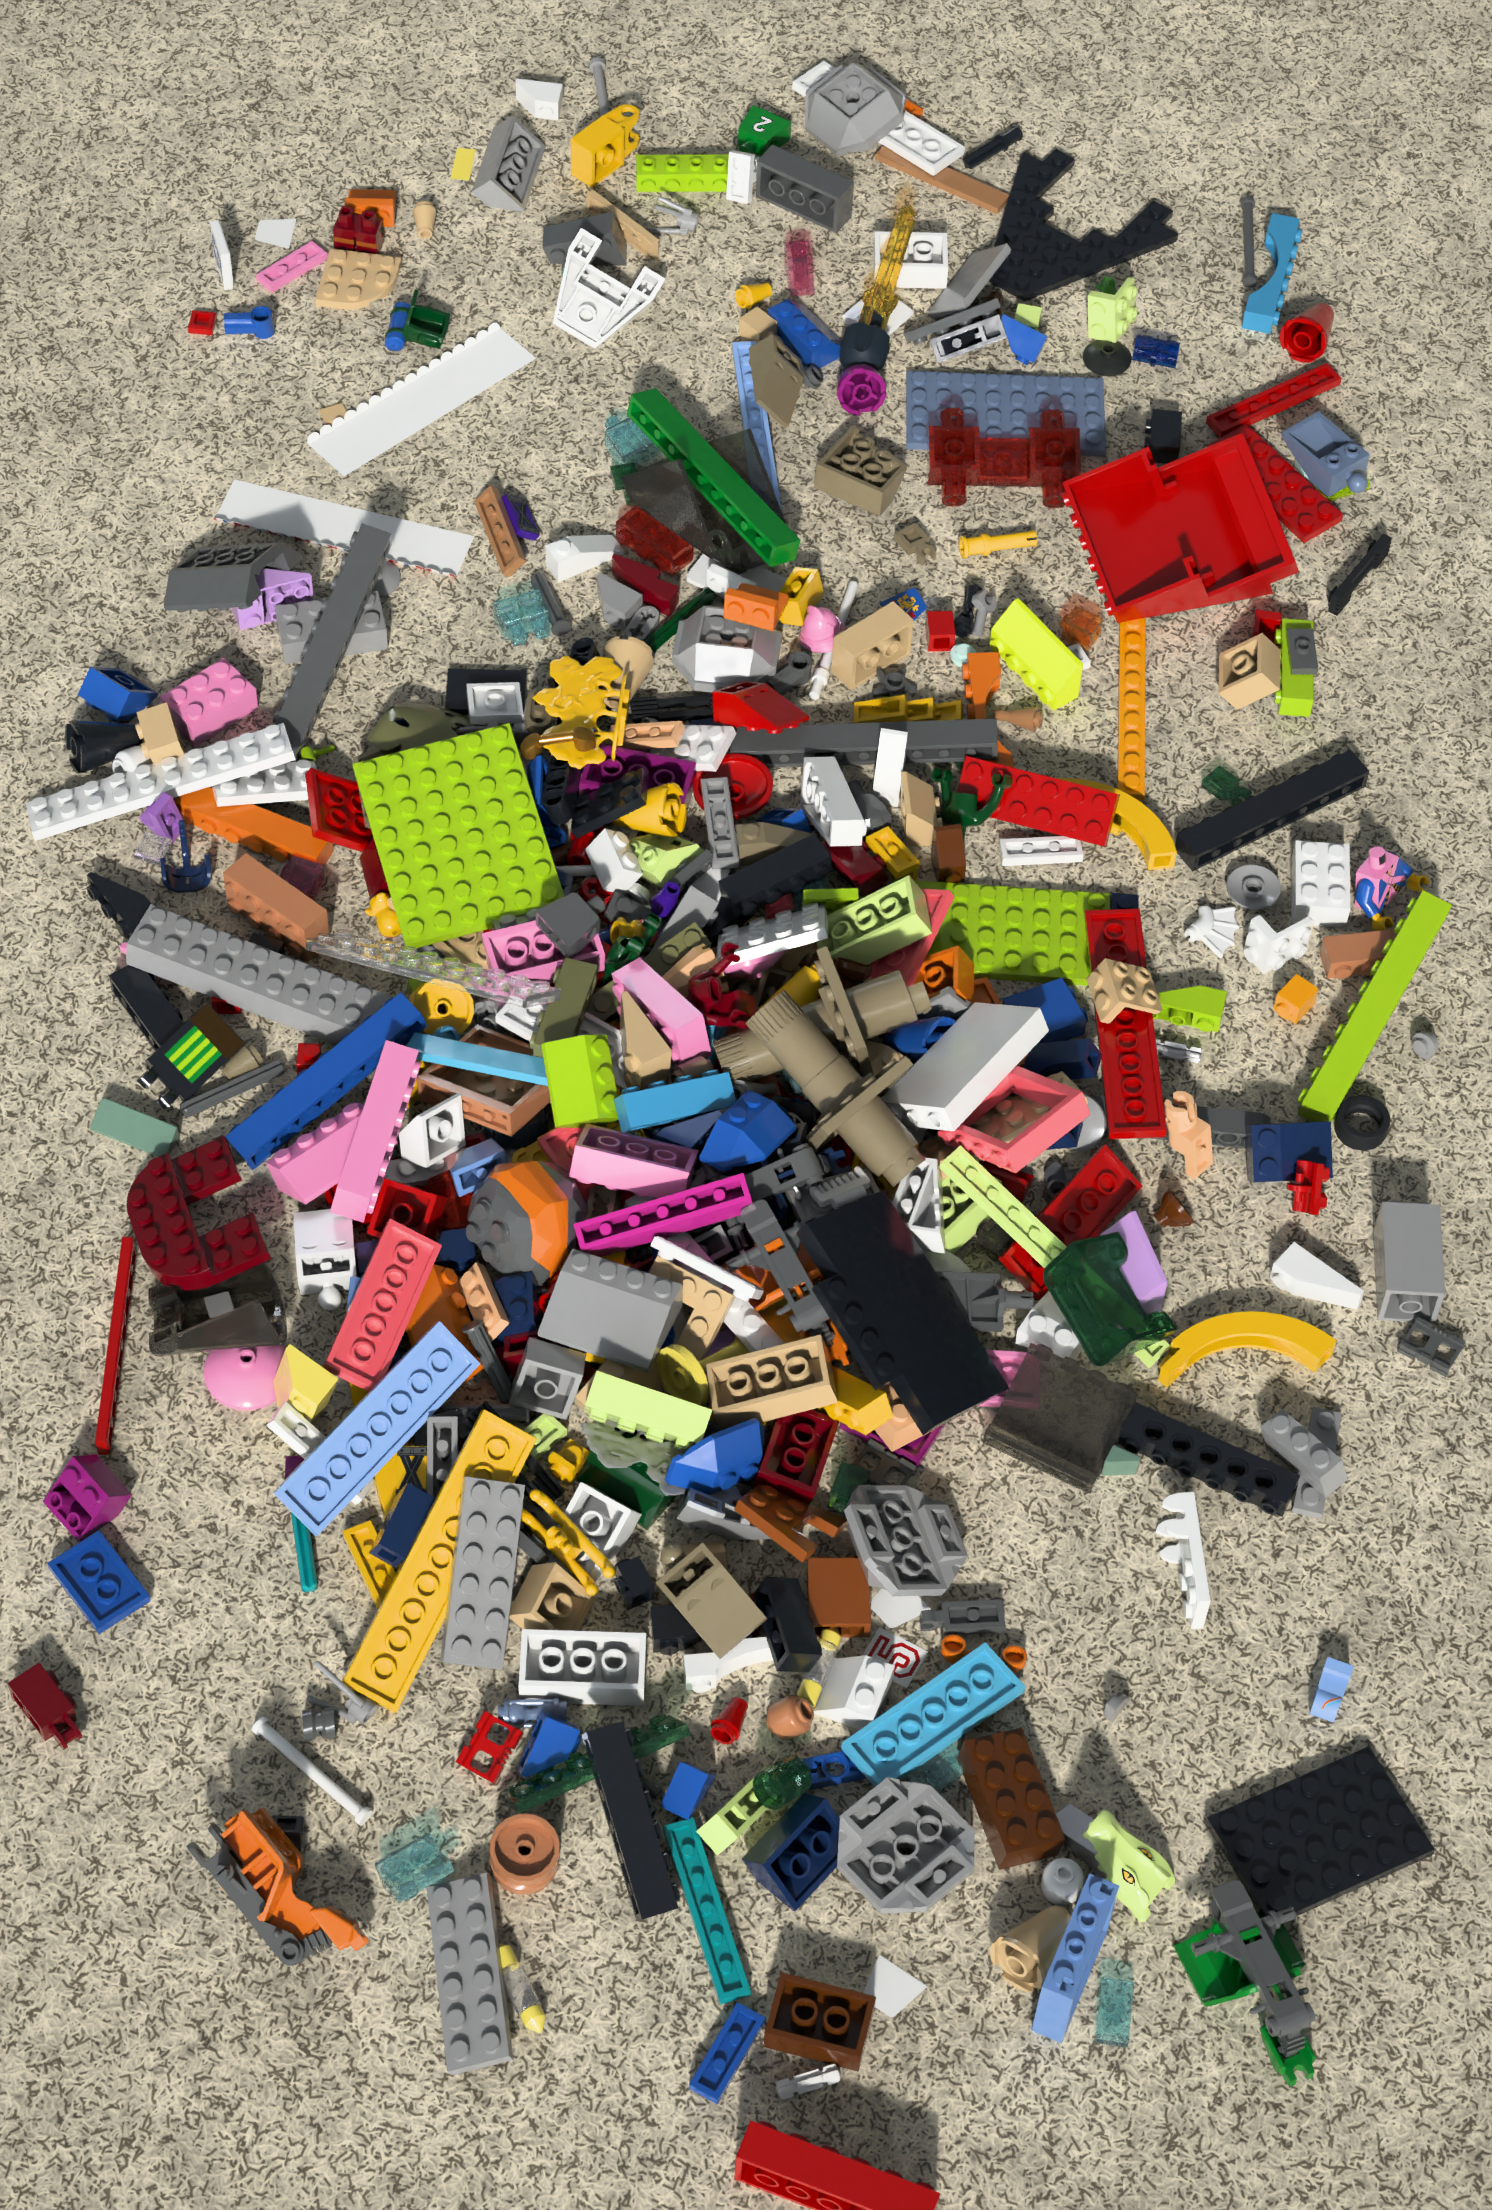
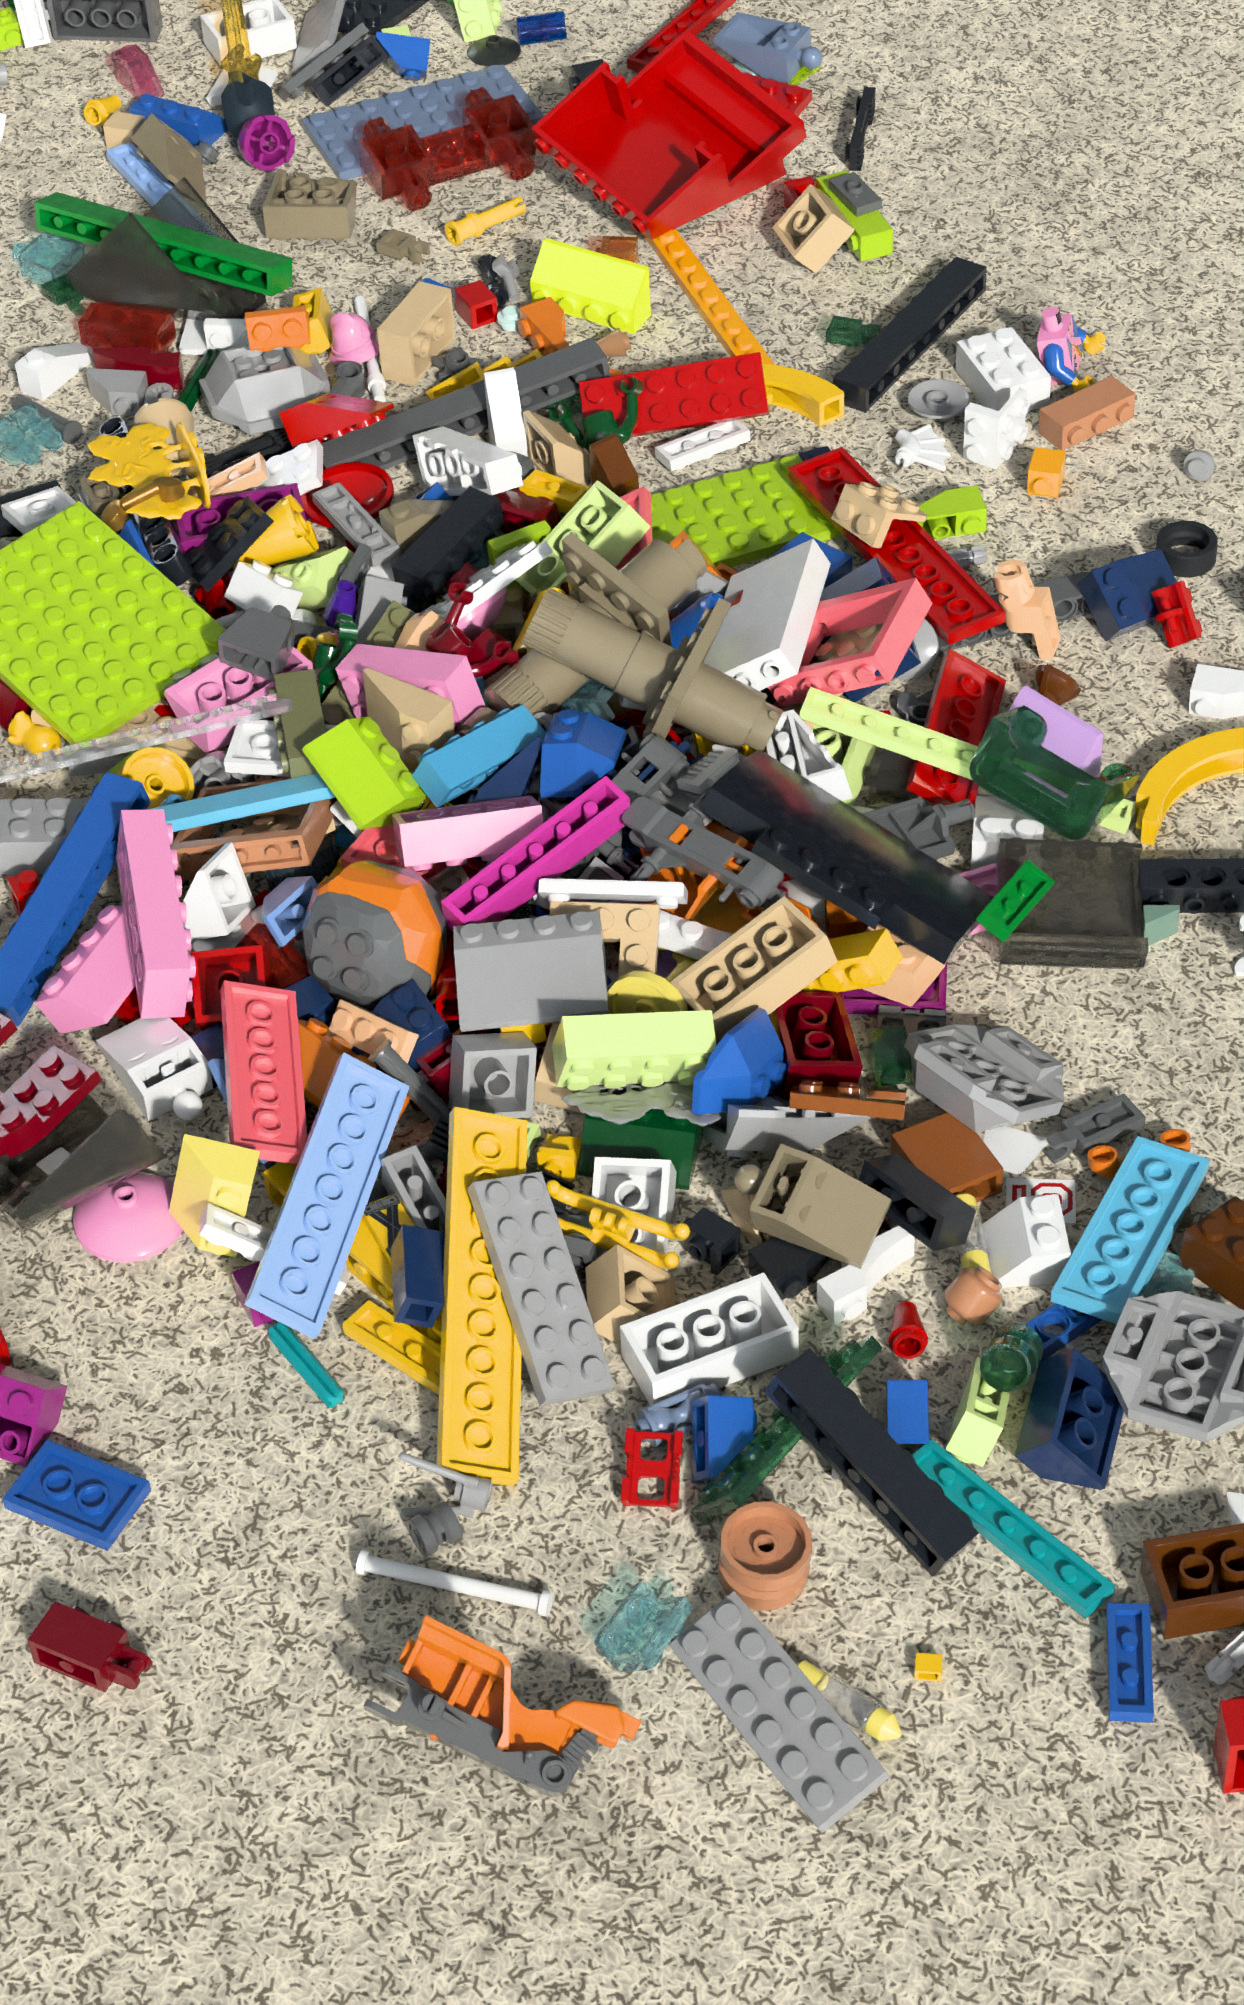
camera: 20 degrees left, 10 degrees down
(591, 1989) = (928, 1666): none -> yellow piece
(955, 1030) = (735, 598): none -> sticker
(1011, 1402) = (1015, 900): none -> green plate
(1374, 1009) = (1134, 442): lime brick -> none

